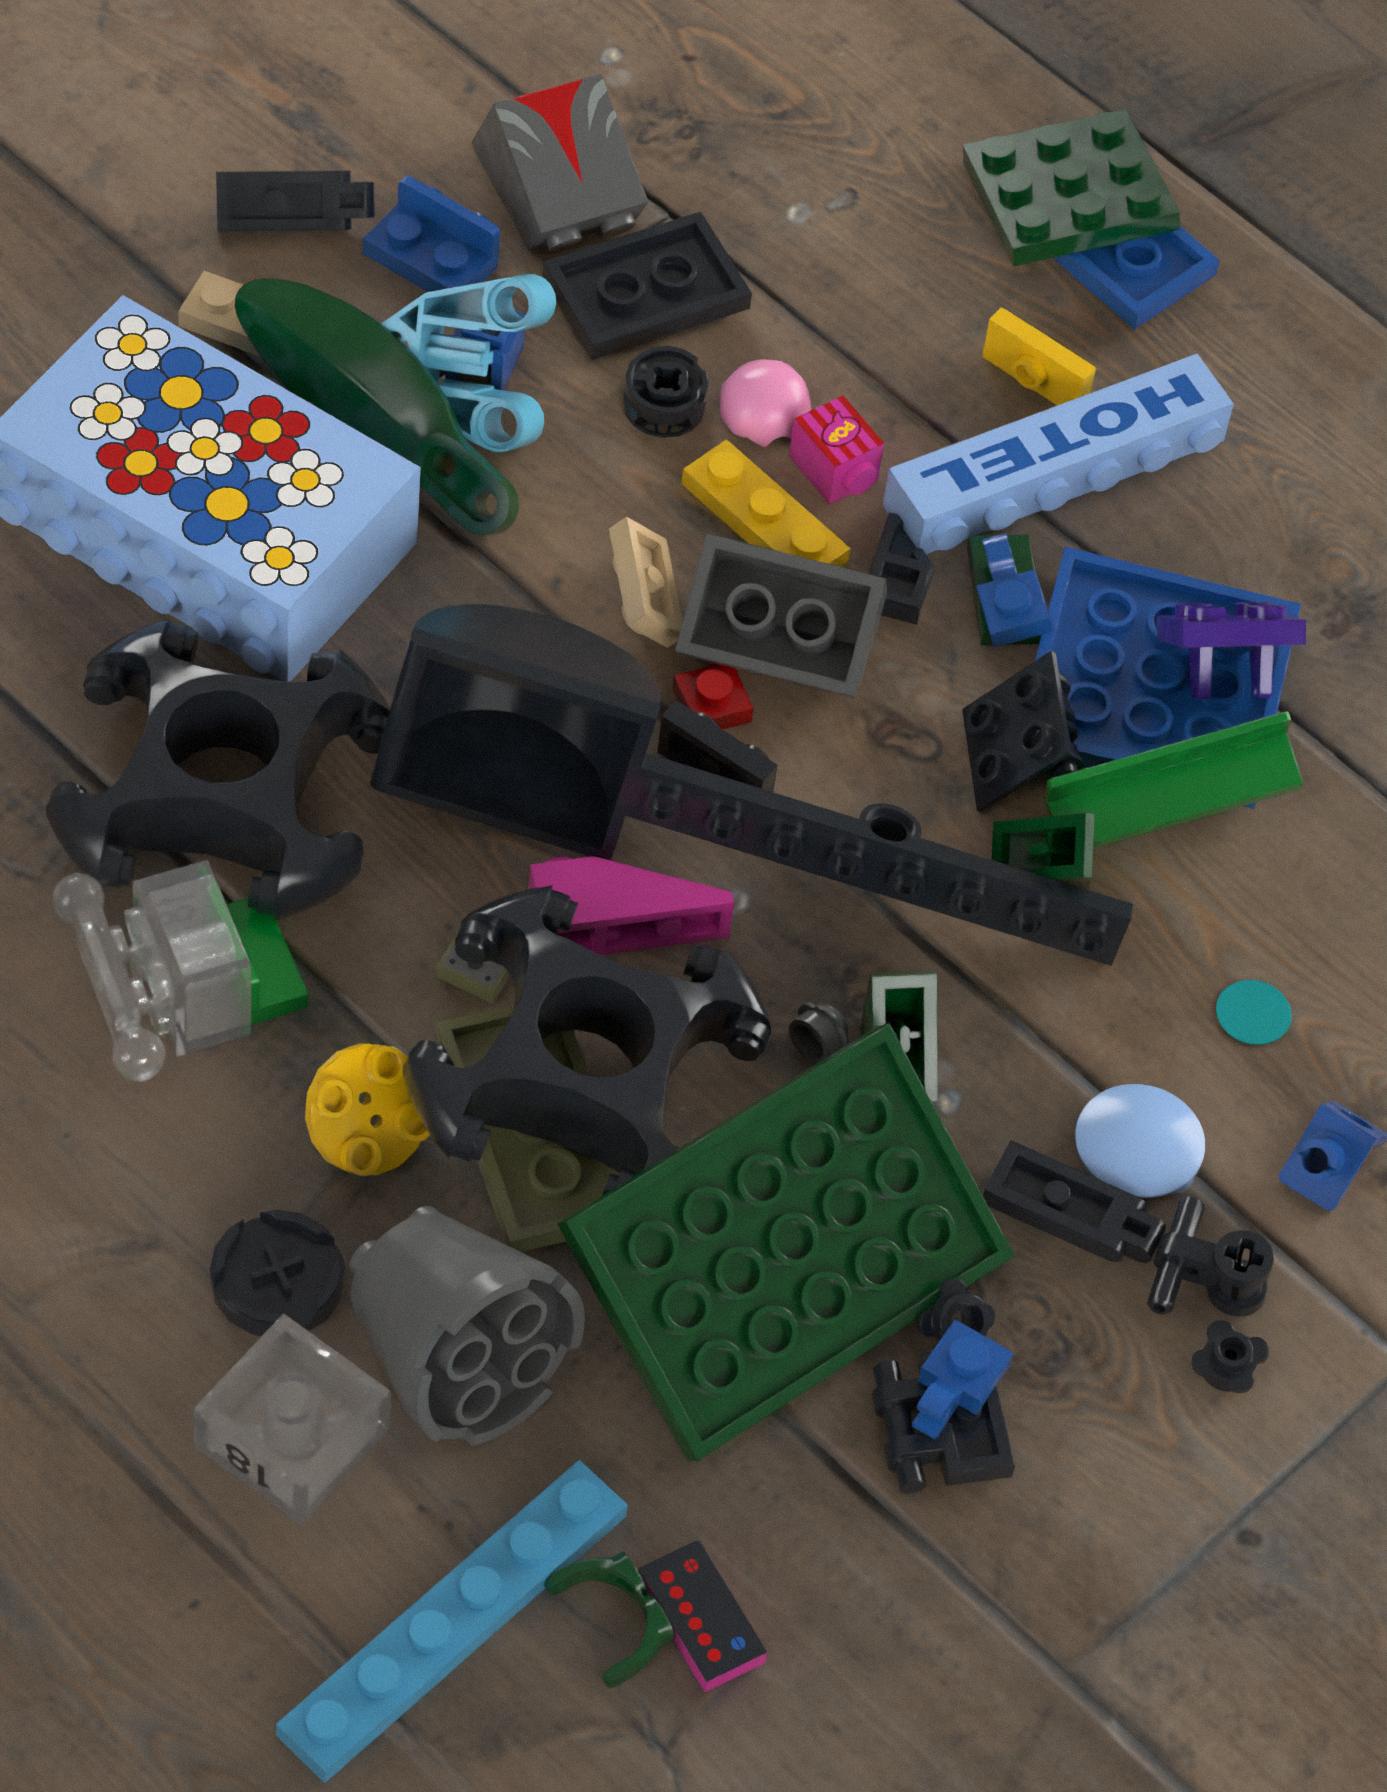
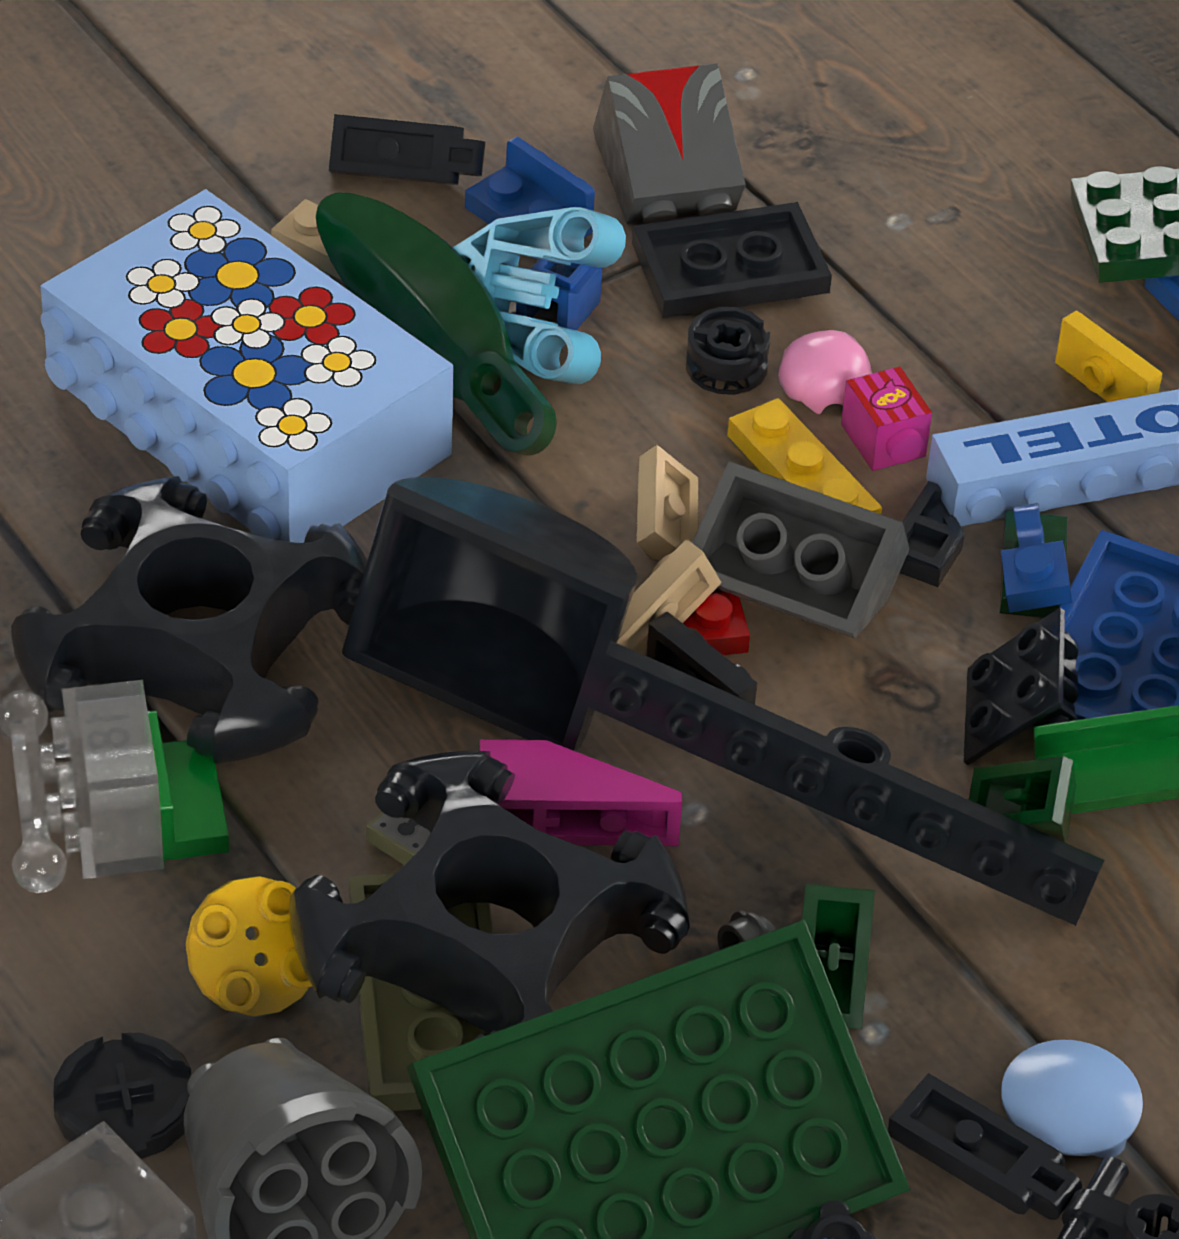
camera: 15 degrees right, 10 degrees down
(680, 673) = (676, 585): none -> tan plate

